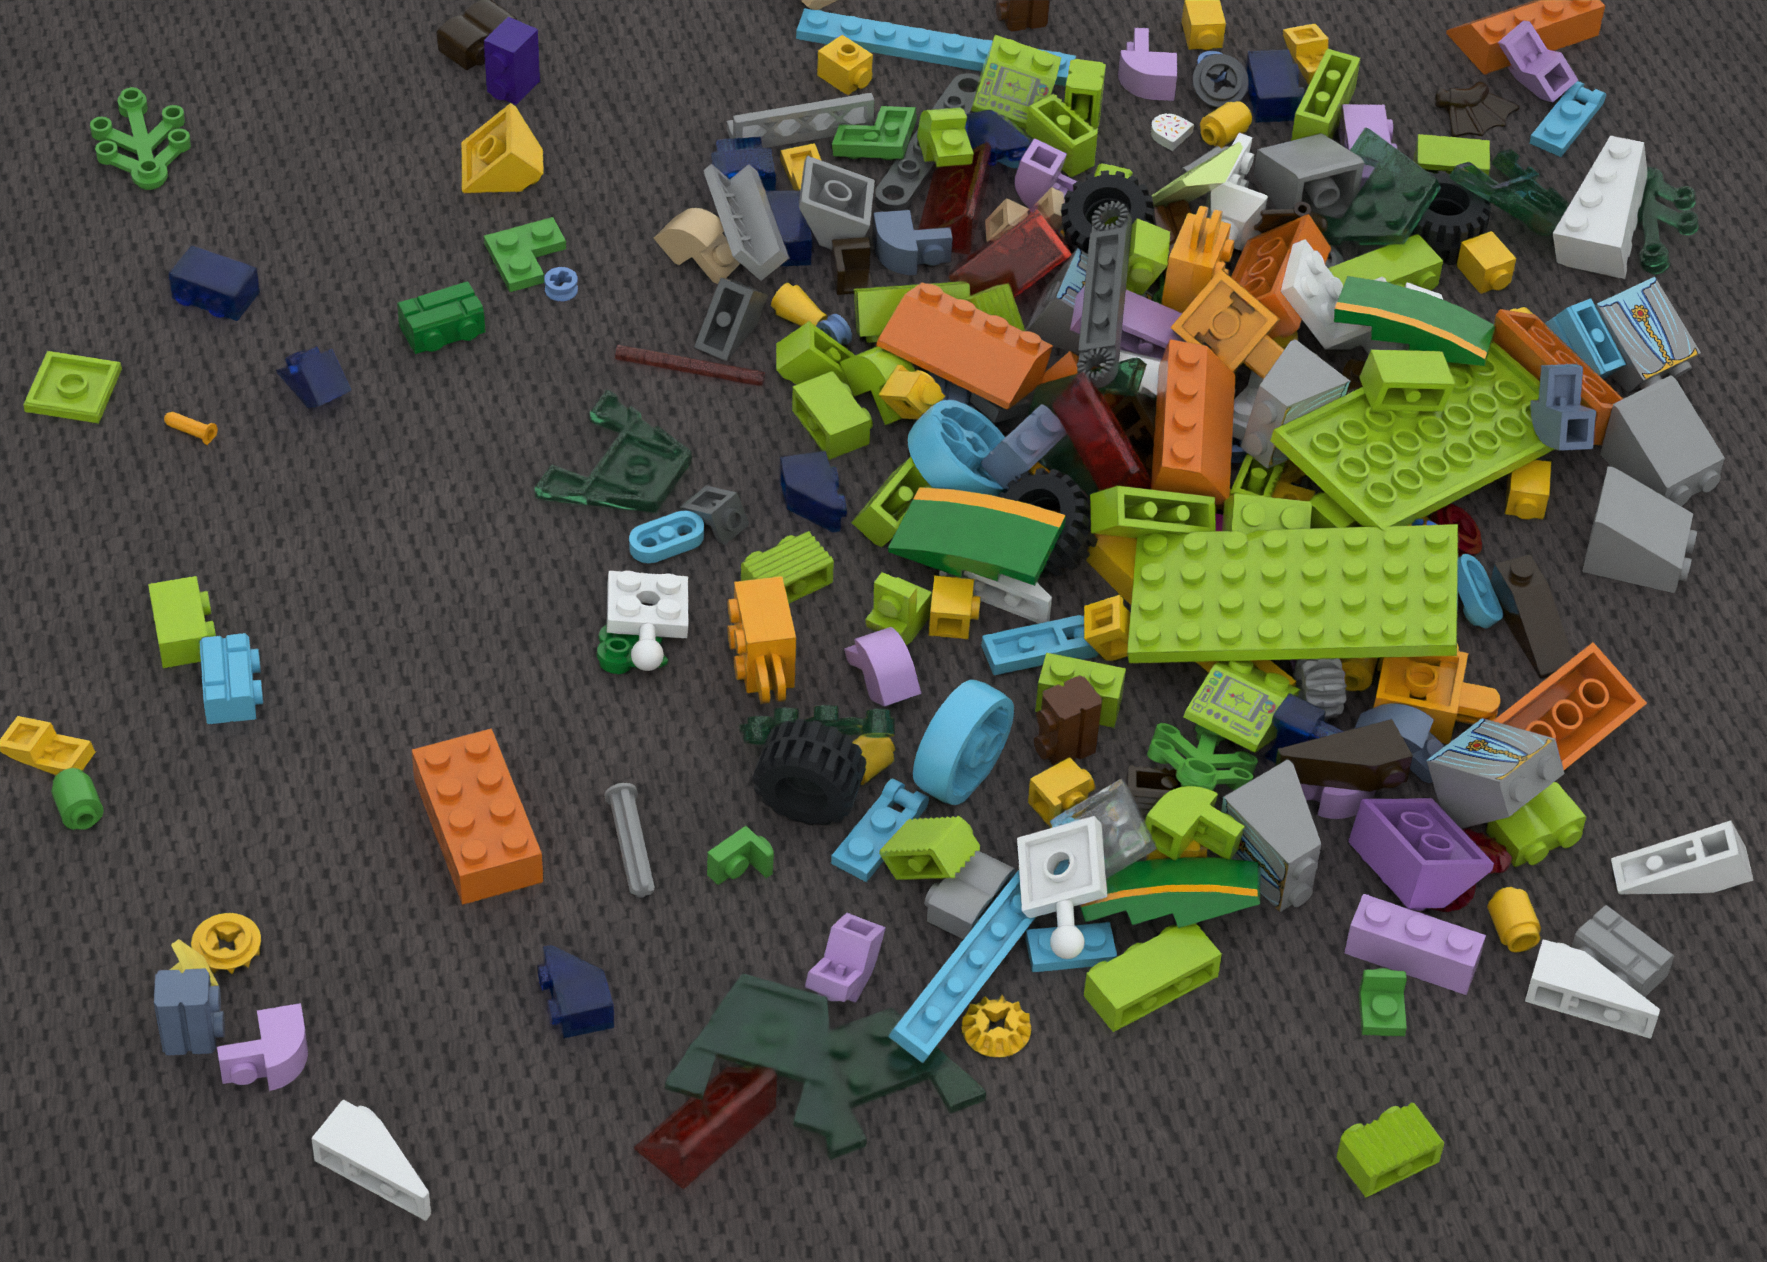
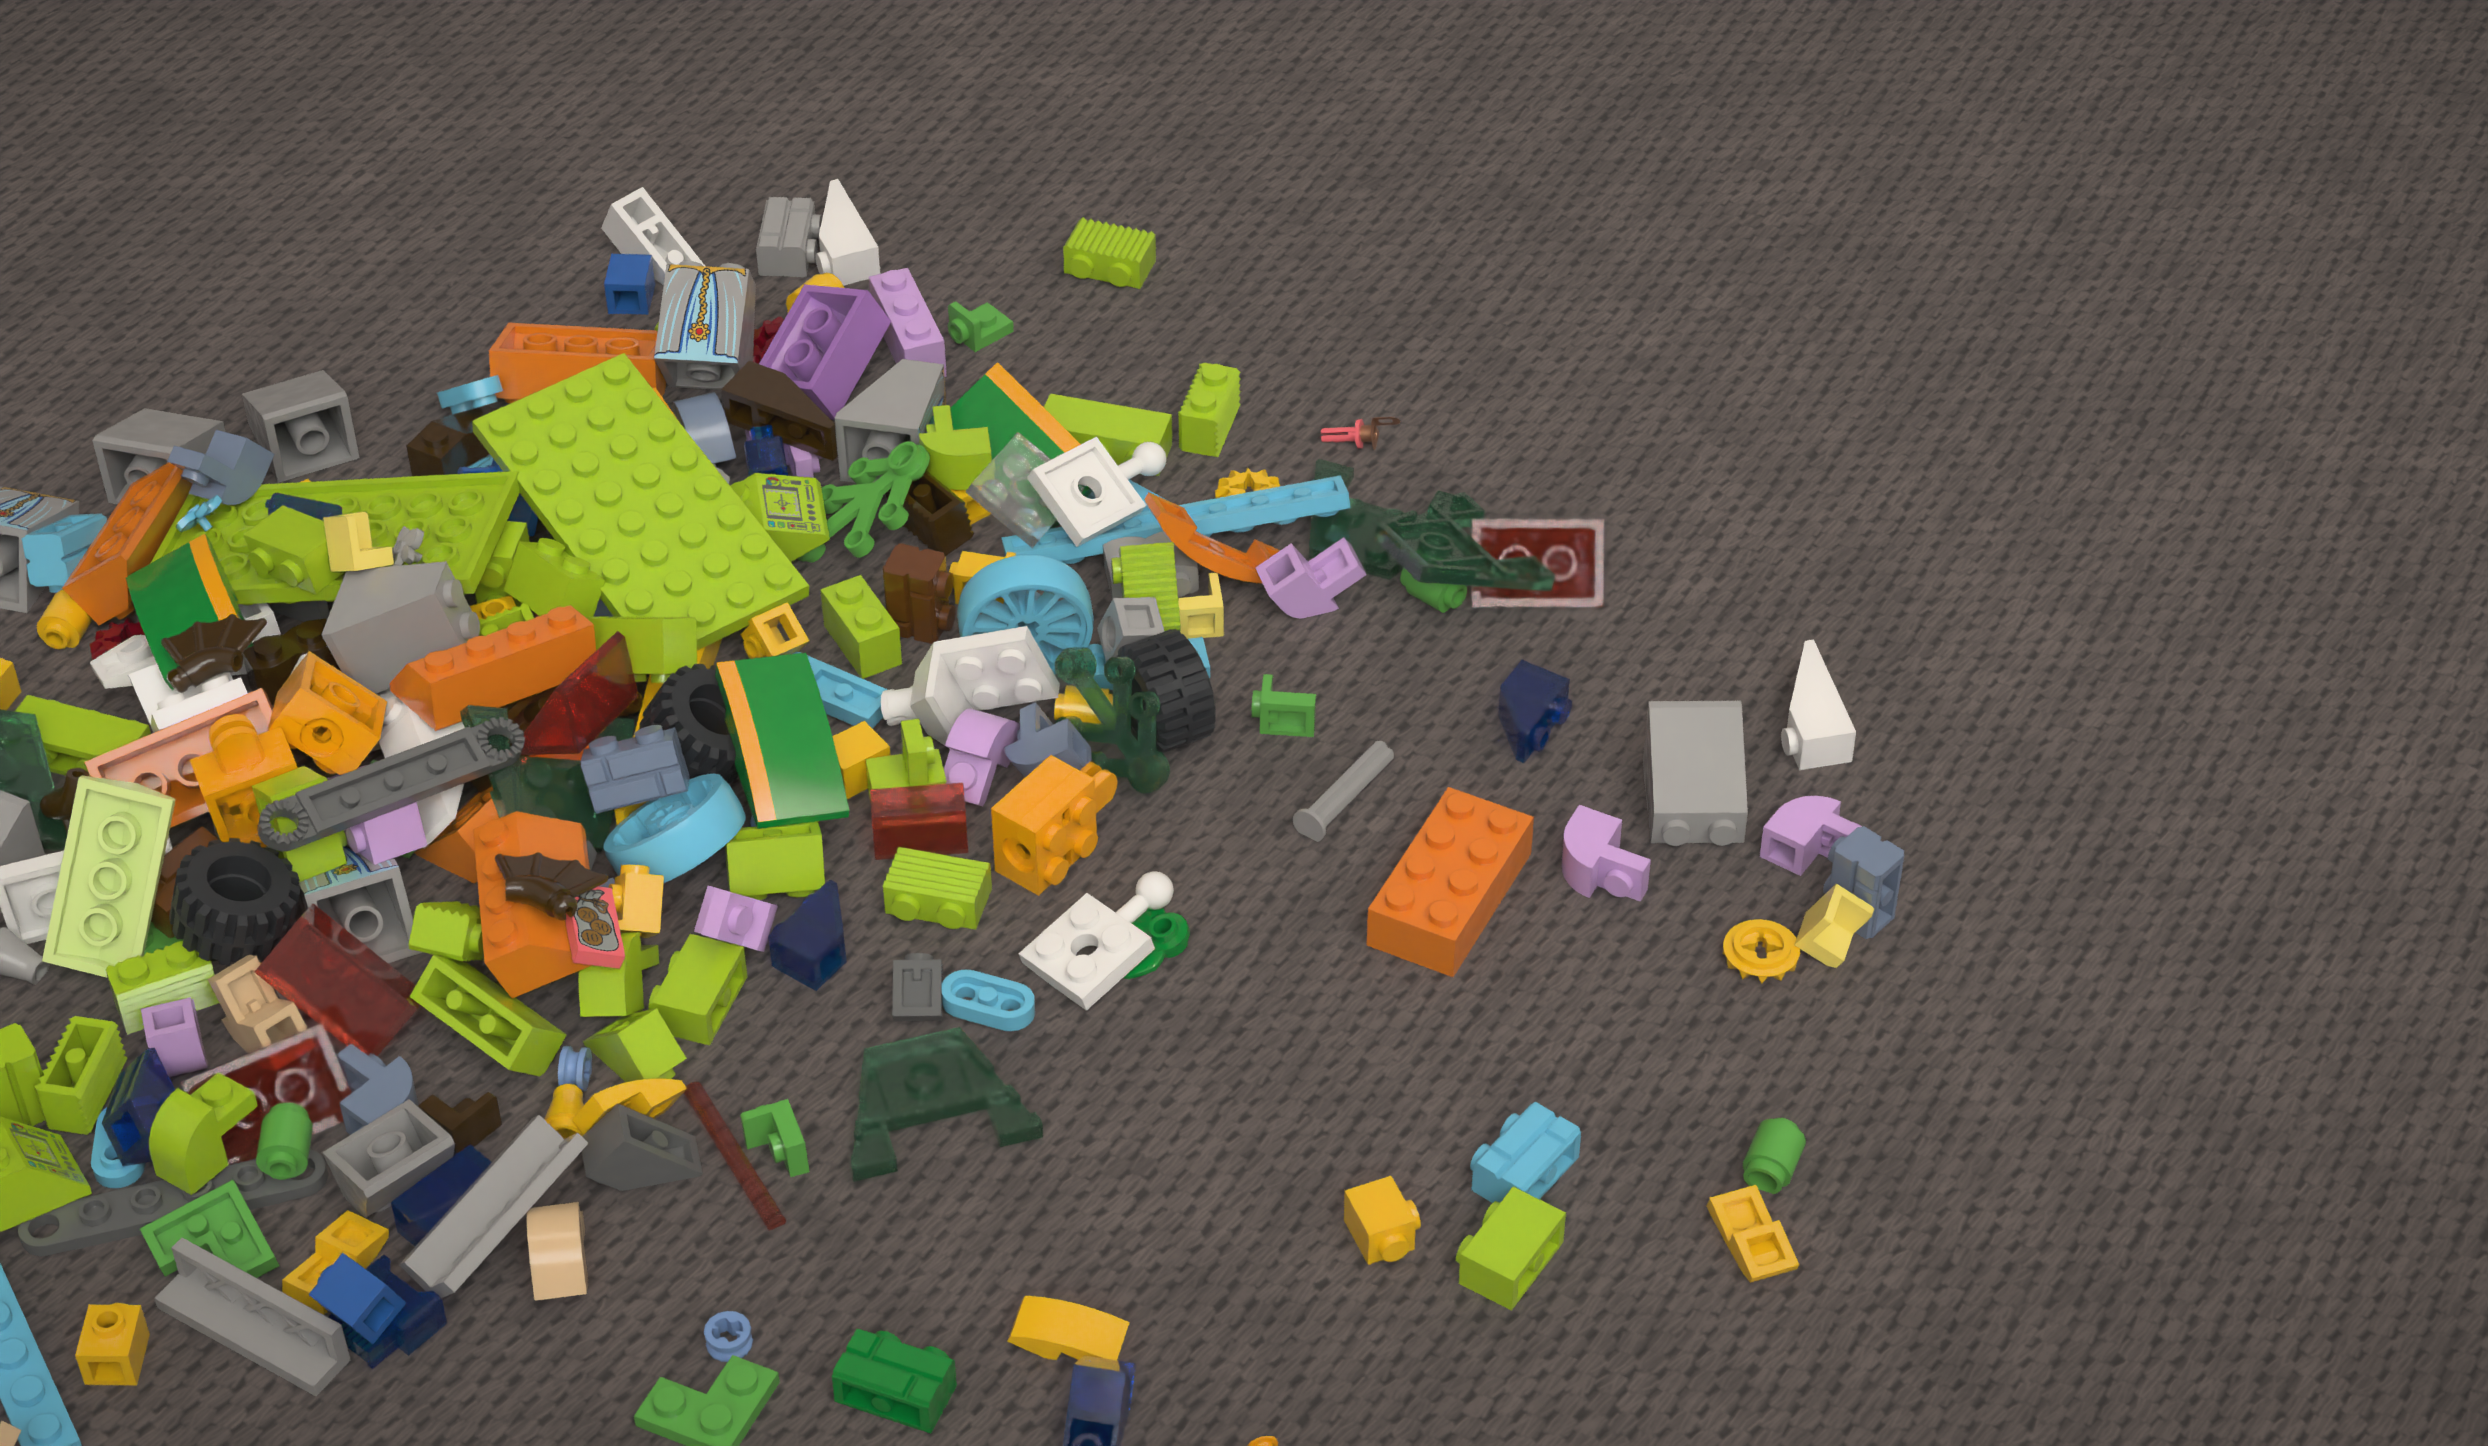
camera: 130 degrees left, 5 degrees down
(275, 580) = (1381, 1220): none -> yellow brick
(388, 403) = (1060, 1326): none -> yellow slope
(395, 1017) = (1695, 772): none -> light grey slope
(405, 907) = (1595, 859): none -> lavender brick
(669, 380) = (778, 1127): none -> bright green bracket
(744, 131) = (357, 1298): none -> blue brick
(765, 327) = (645, 1096): none -> yellow slope
(836, 684) = (1041, 738): none -> sand blue brick
(849, 447) = (735, 918): none -> lavender brick
(852, 594) = (919, 819): none -> clear red panel
(884, 788) = (1128, 622): none -> light grey brick
(891, 894) = (1203, 614): none -> light yellow panel
(899, 342) = (595, 930): none -> tile
(907, 178) = (284, 1141): none -> bright green brick
(927, 916) = (1205, 550): none -> orange slope
(937, 670) = (974, 674): none -> white plate
(946, 323) = (547, 882): none -> dark brown arm
(988, 1146) = (1359, 434): none -> piece
(1109, 1056) = (1209, 409): none -> lime brick
(1339, 289) = (209, 650): none -> dark brown arm
(1339, 413) = (405, 546): none -> light grey plant
(1360, 382) = (351, 544): none -> light yellow panel
(1464, 422) = (307, 506): none -> axle
(1529, 385) = (197, 515): none -> medium azure plant
(1572, 634) = (471, 395): none -> medium azure plate
(1647, 818) = (629, 284): none -> blue brick

